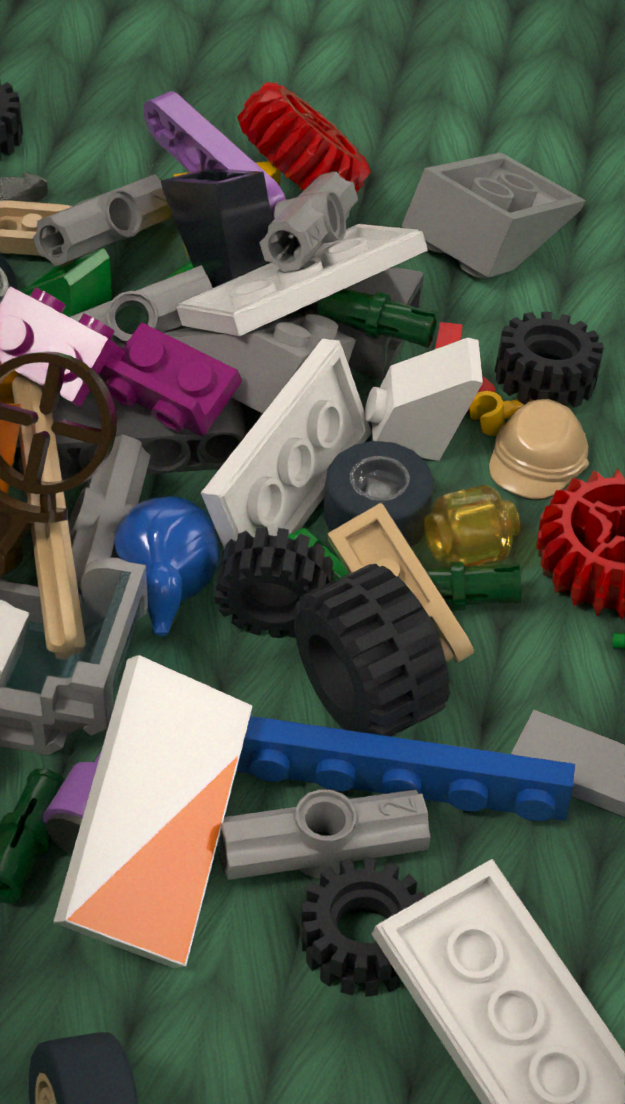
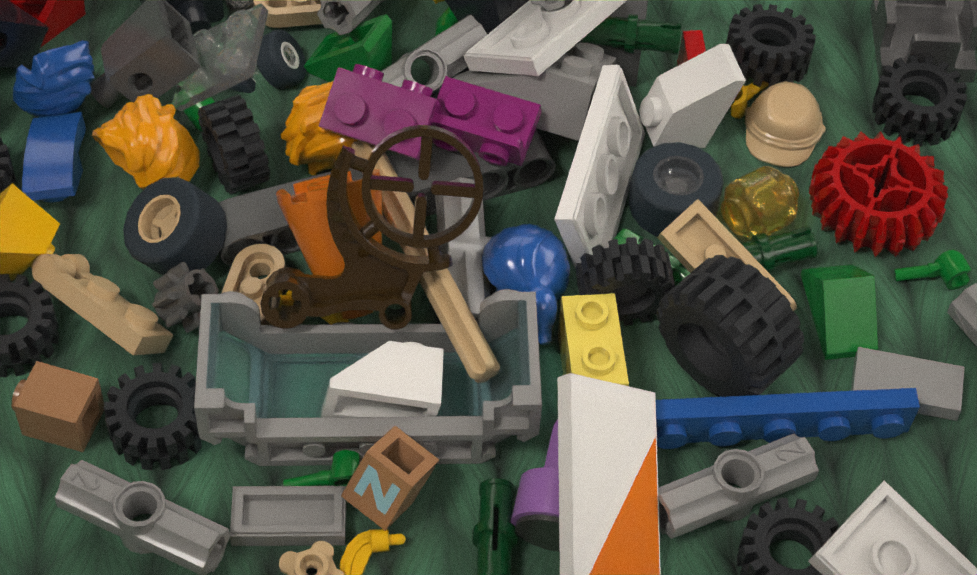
camera: 15 degrees left, 5 degrees up
(214, 636) = (592, 338): none -> light yellow brick
(530, 666) = (842, 308): none -> green slope

